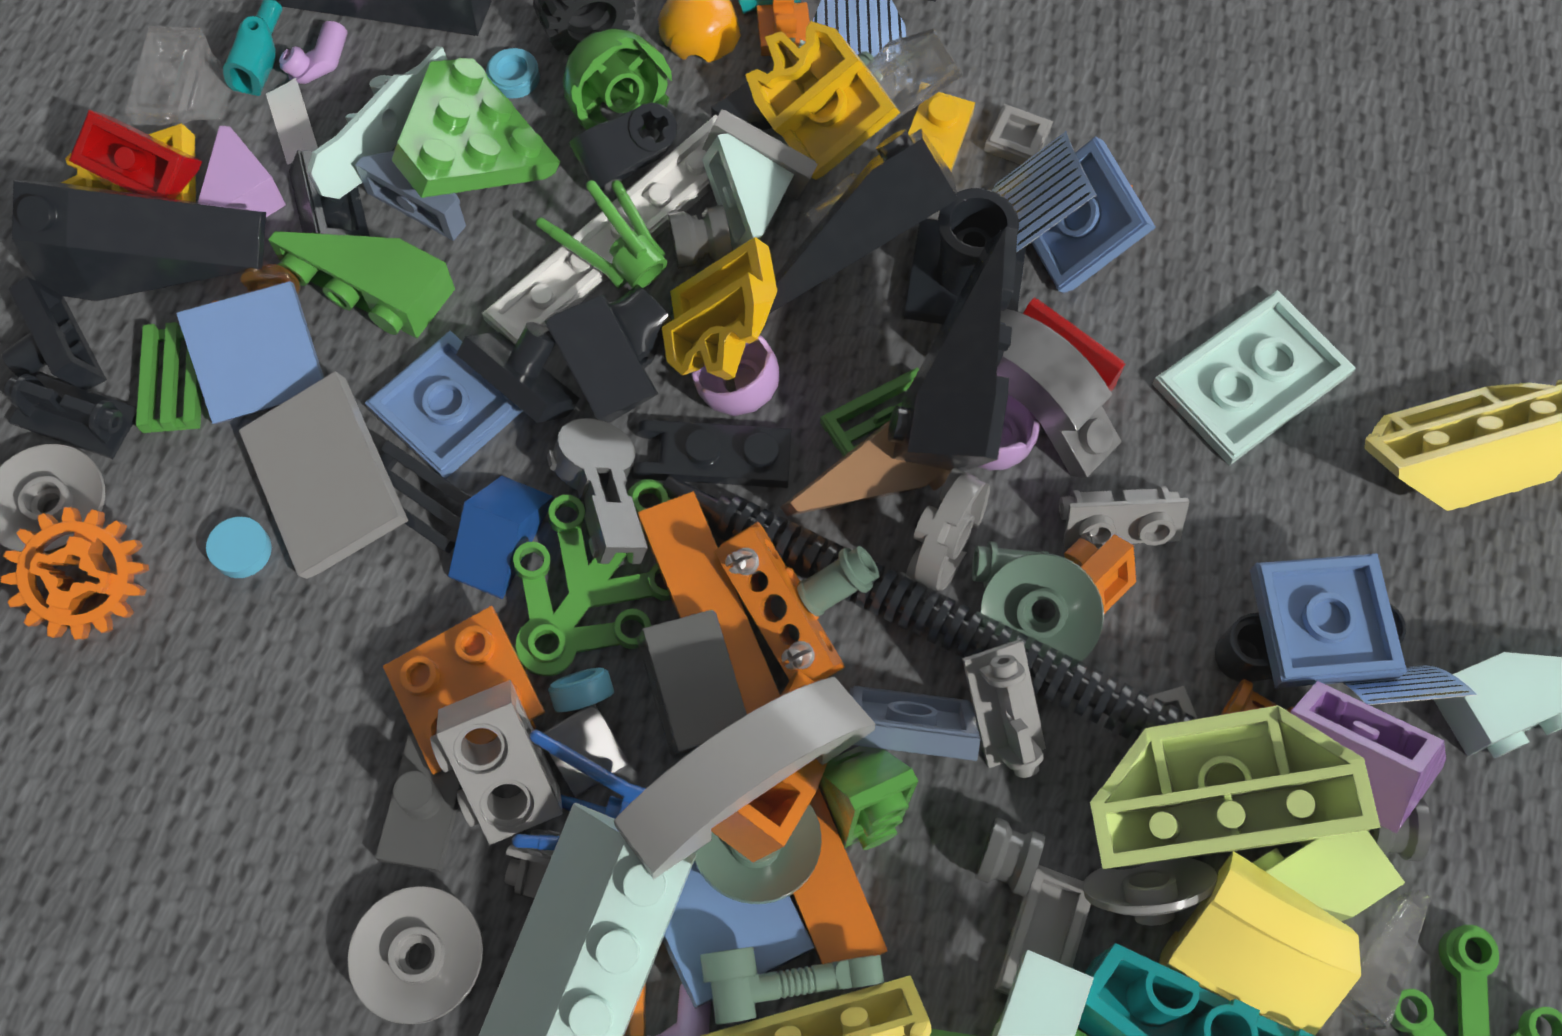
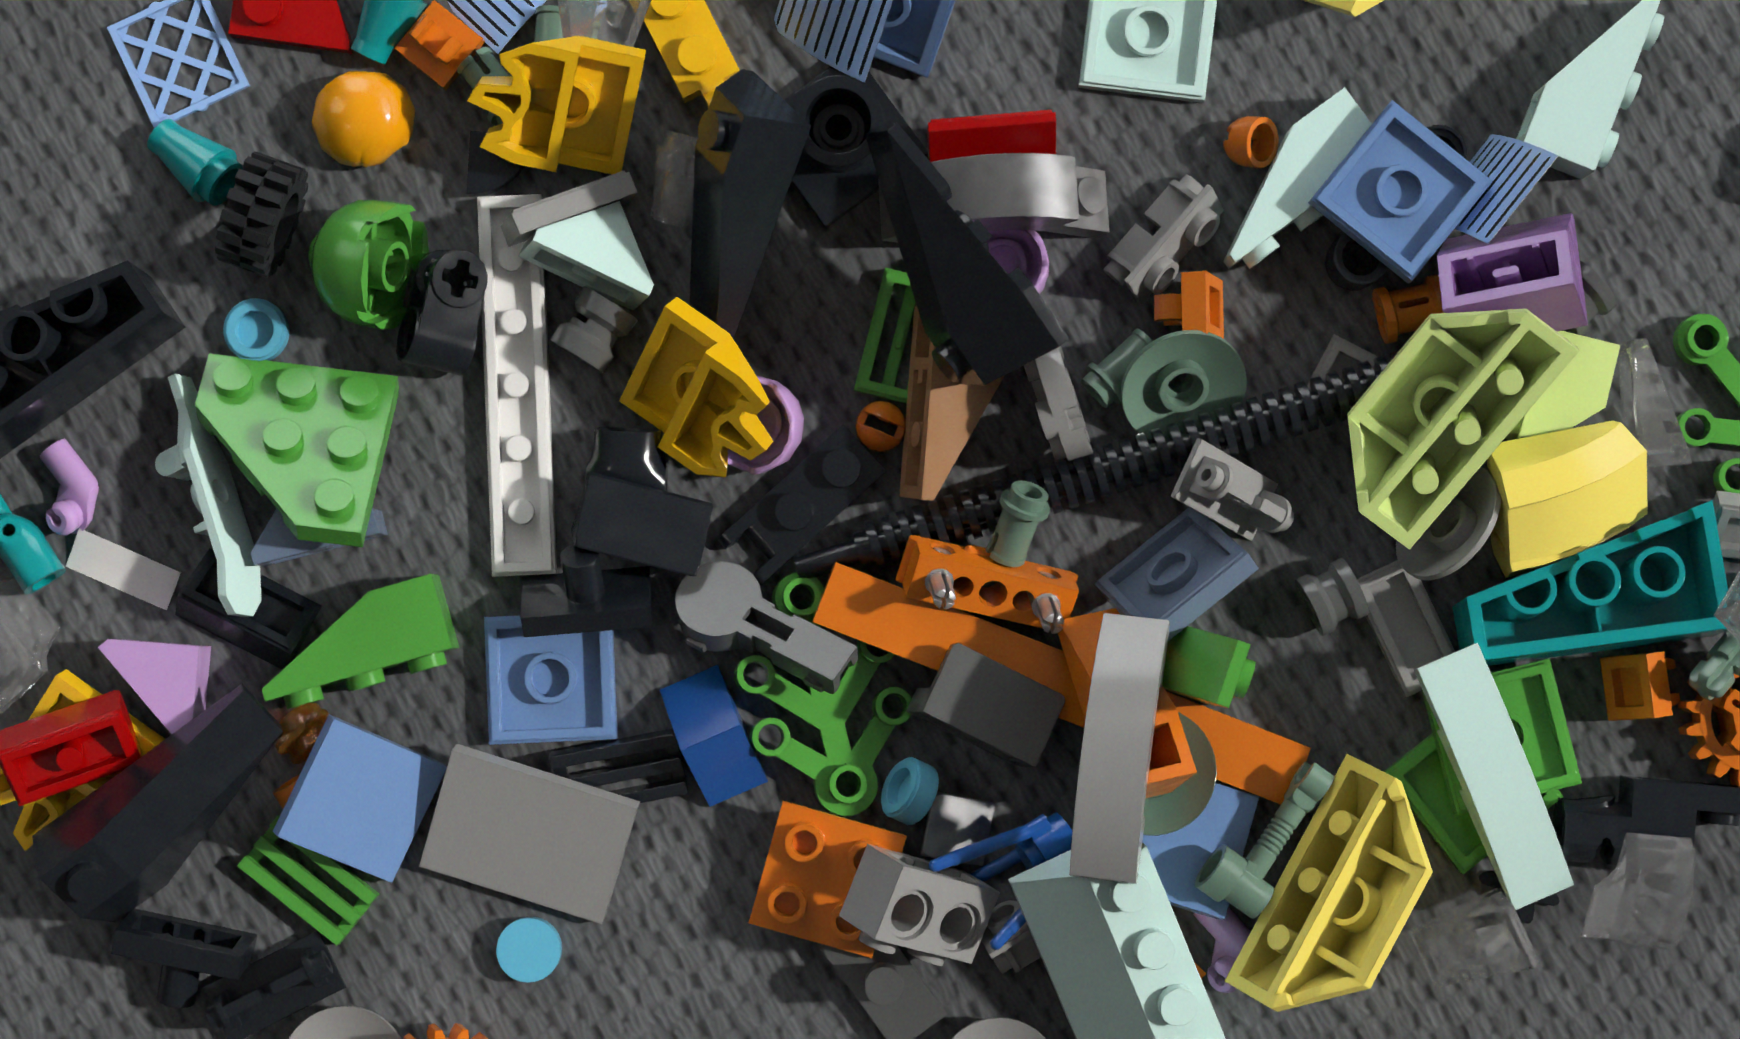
camera: 45 degrees left, 20 degrees up
(635, 253) = (569, 408): bright green plant -> none
(803, 457) = (877, 439): none -> orange hinge
(1226, 559) = (1299, 169): none -> light aqua slope
(1251, 506) = (1264, 146): none -> orange hinge

